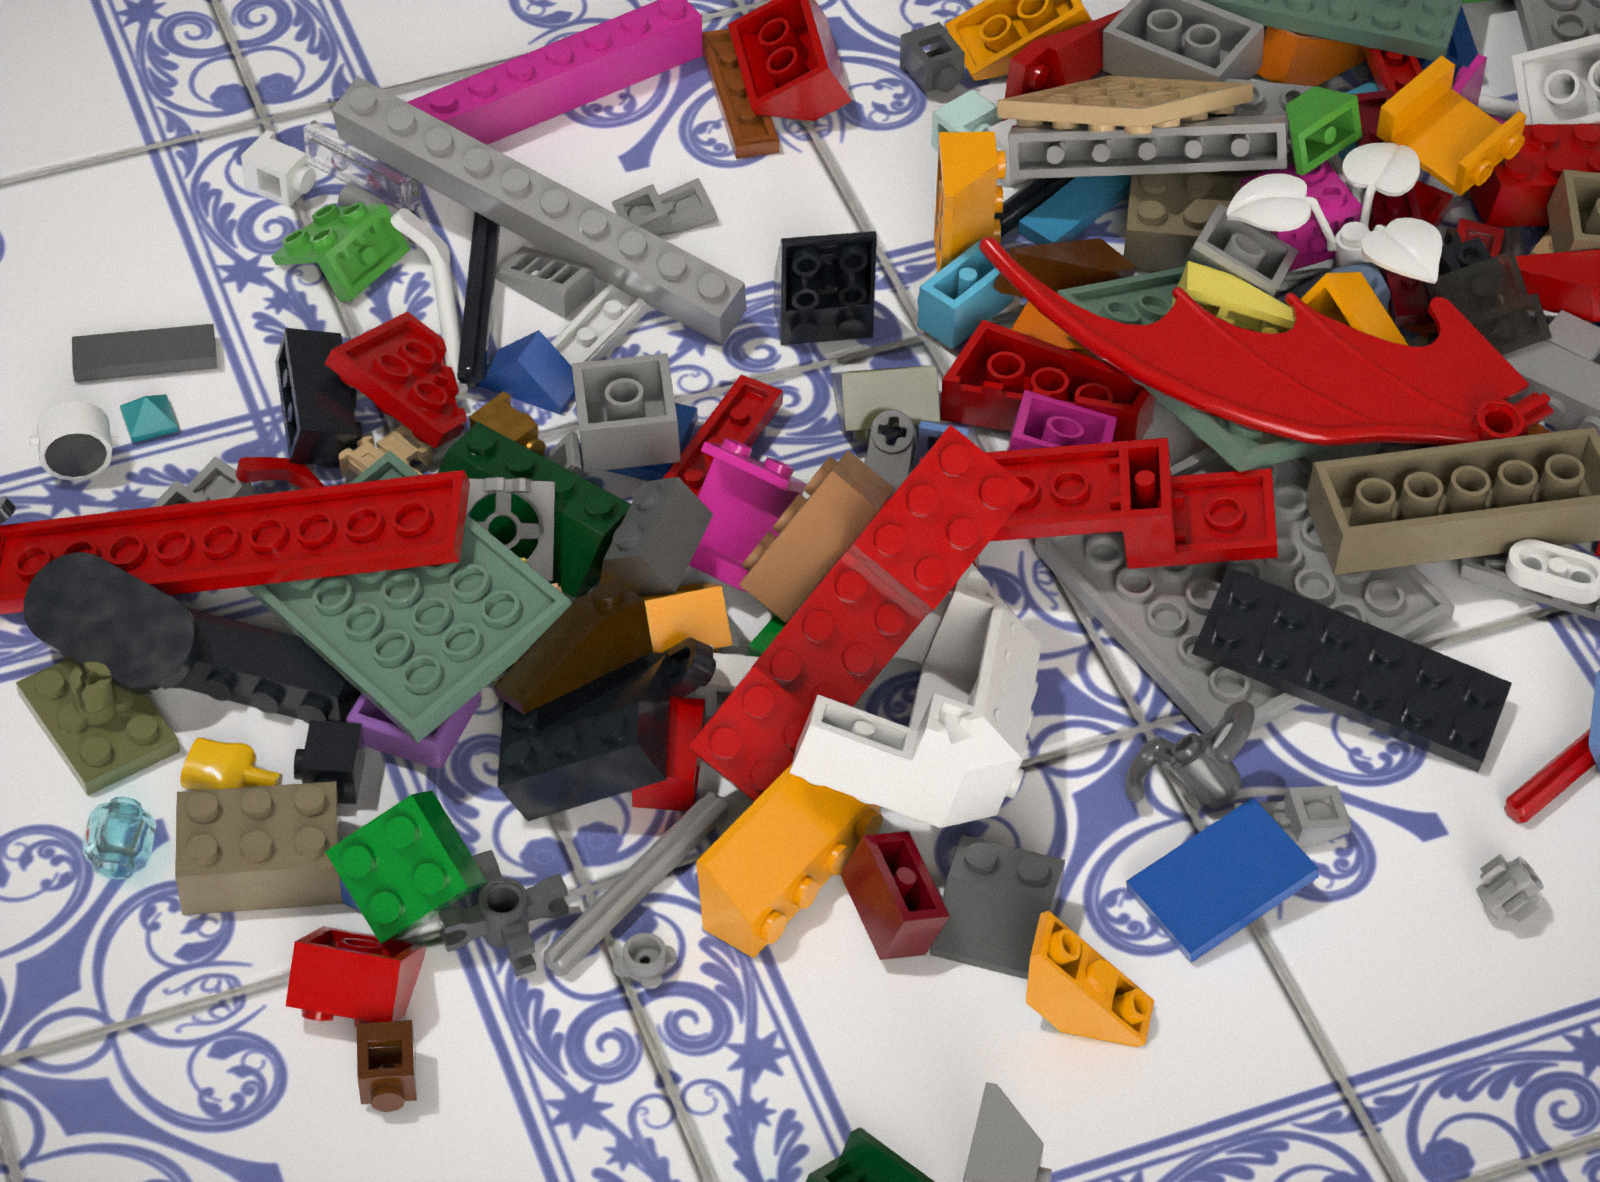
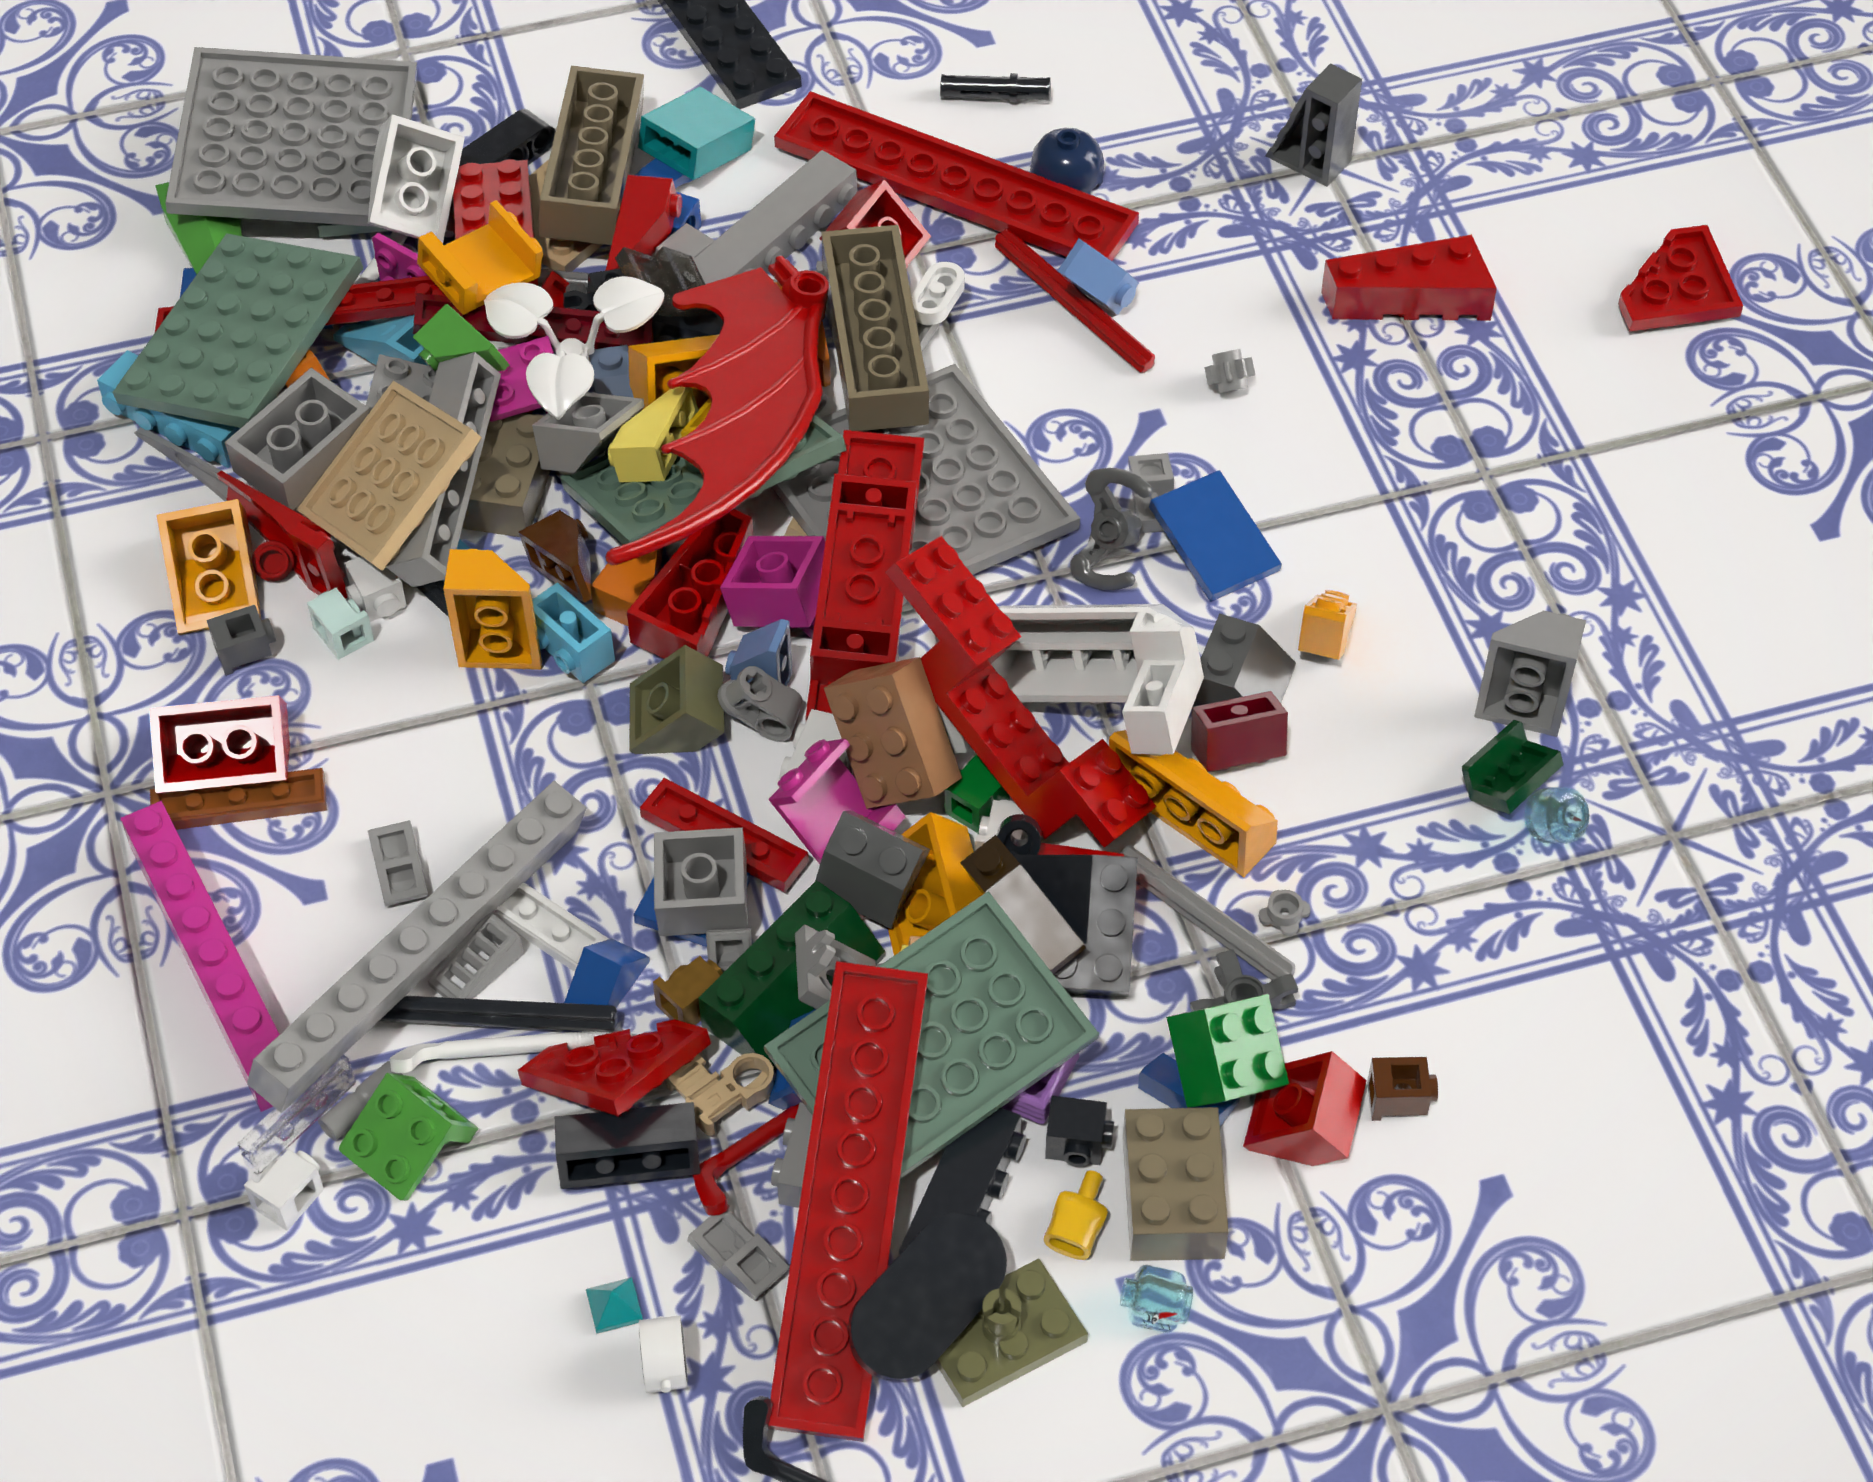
camera: 85 degrees left, 5 degrees up
(144, 352) = (524, 1311): dark grey tile -> none
(825, 287) = (560, 726): black slope -> none
(1352, 668) = (1018, 430): black plate -> none

